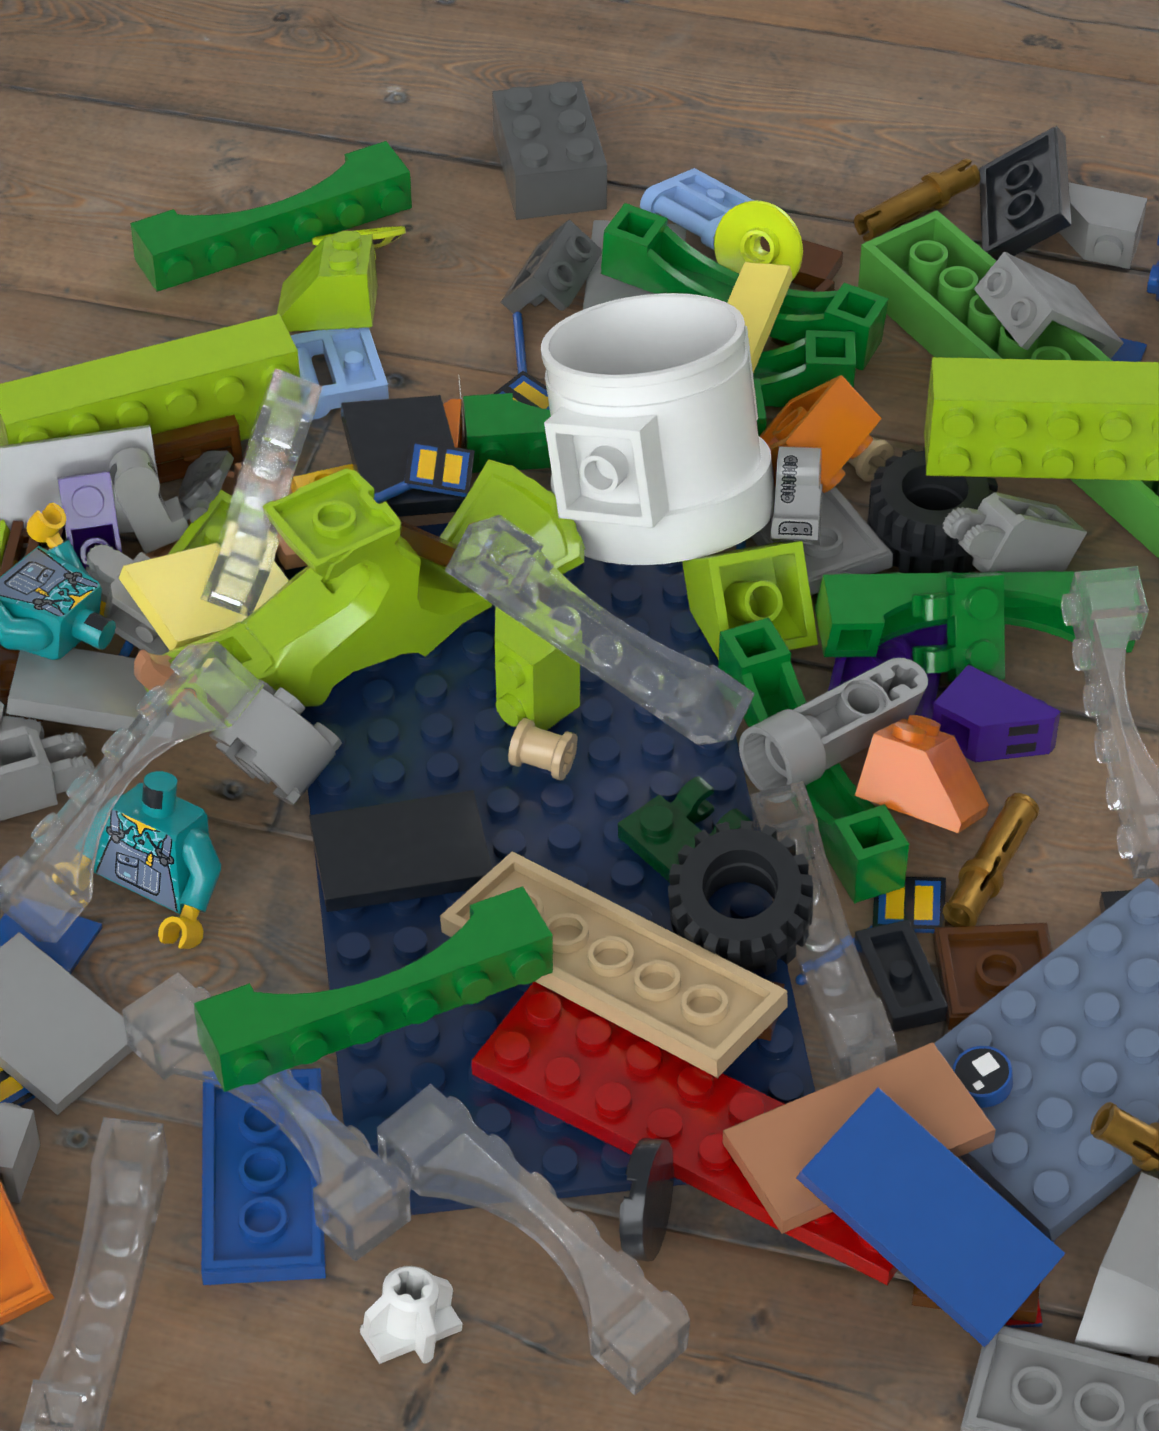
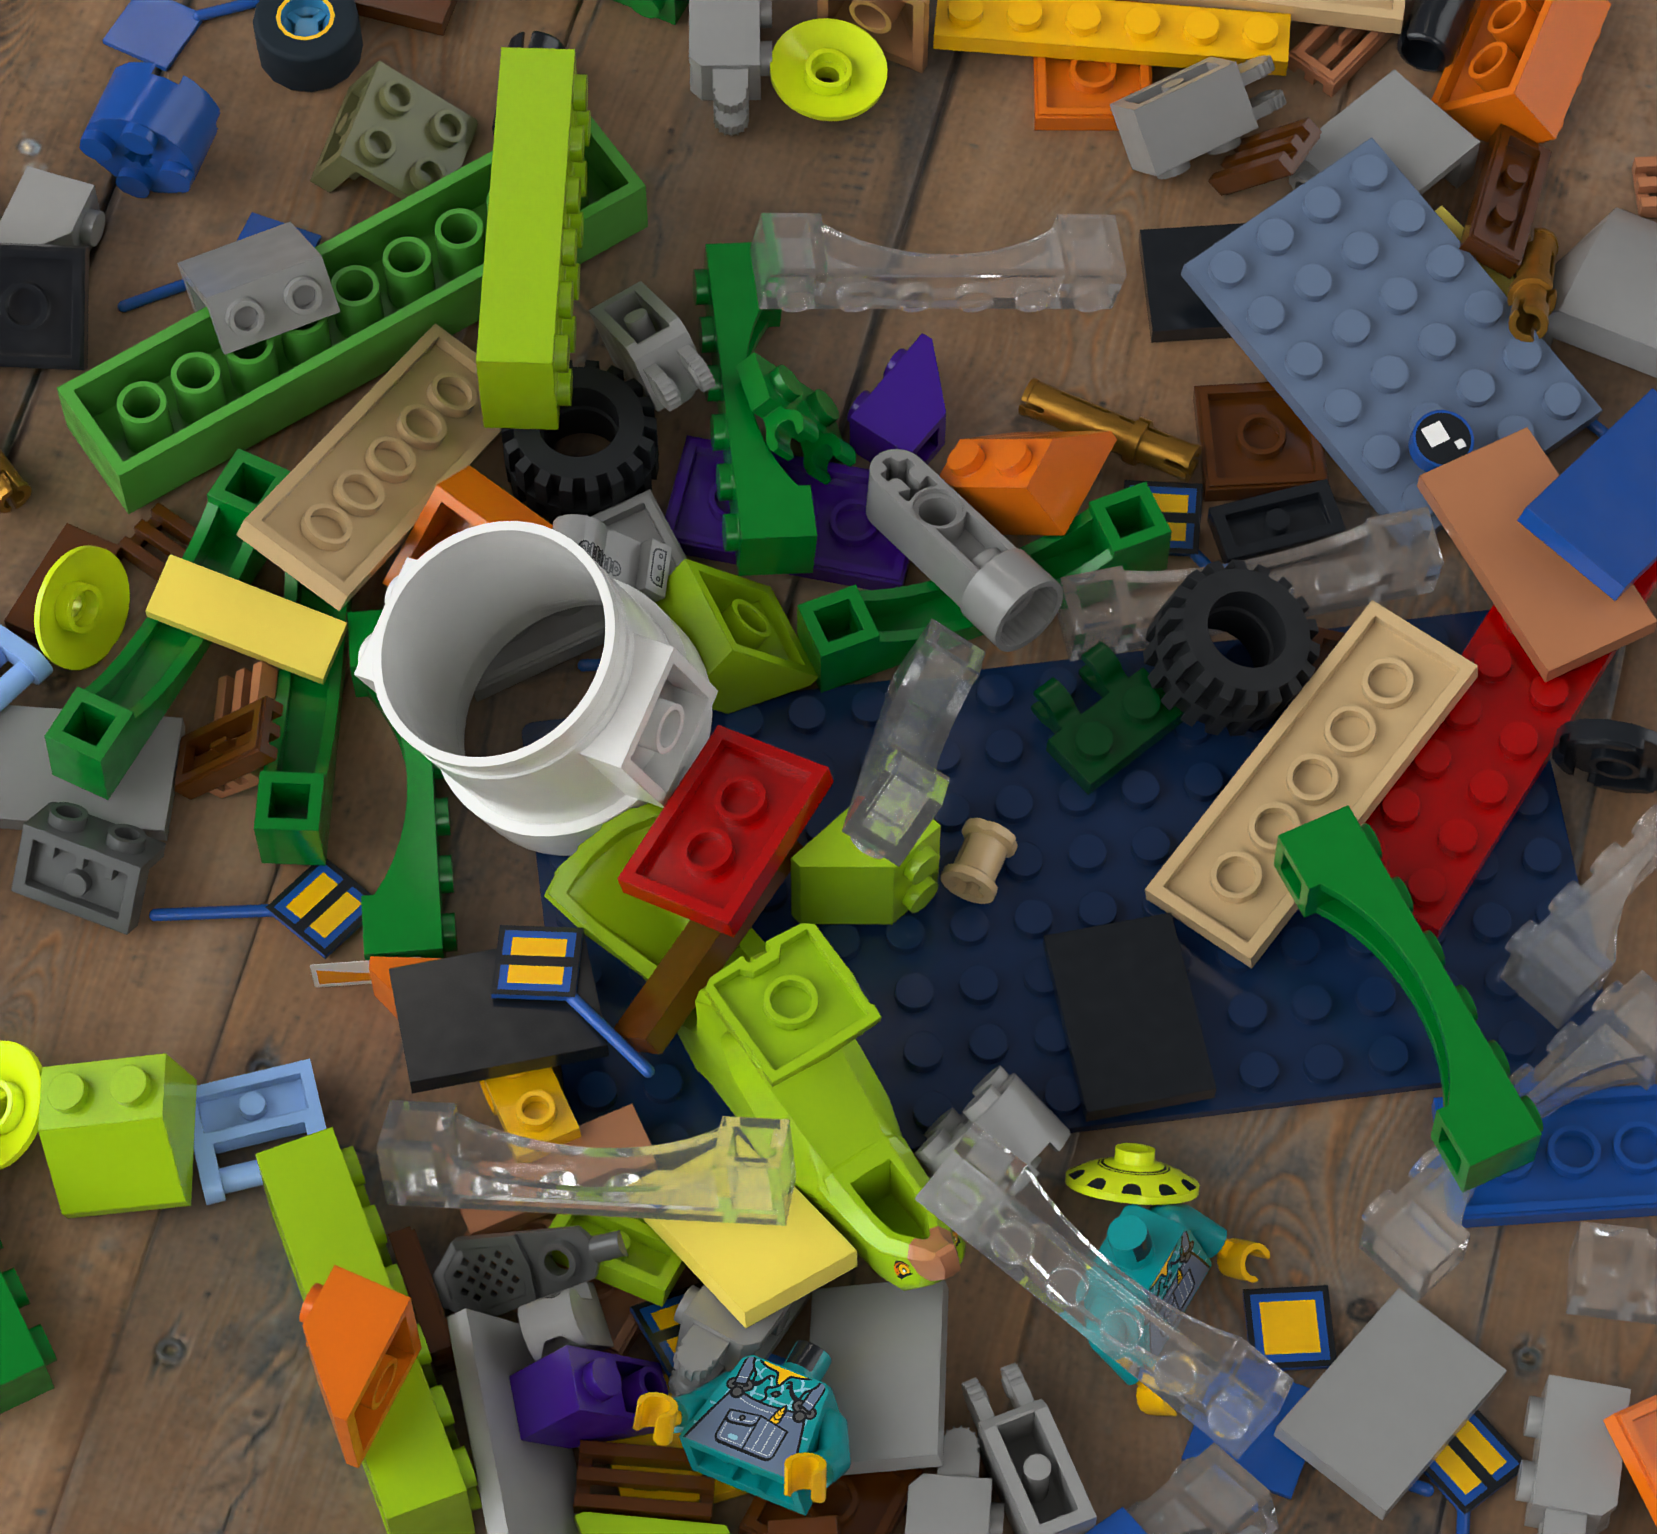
camera: 90 degrees left, 15 degrees up
(84, 331) = (361, 1353): none -> orange slope
(121, 966) = (1291, 1326): none -> piece
(242, 842) = (1132, 1178): none -> neon yellow dish
(570, 540) = (725, 830): none -> red plate
(824, 334) = (375, 471): none -> tan plate

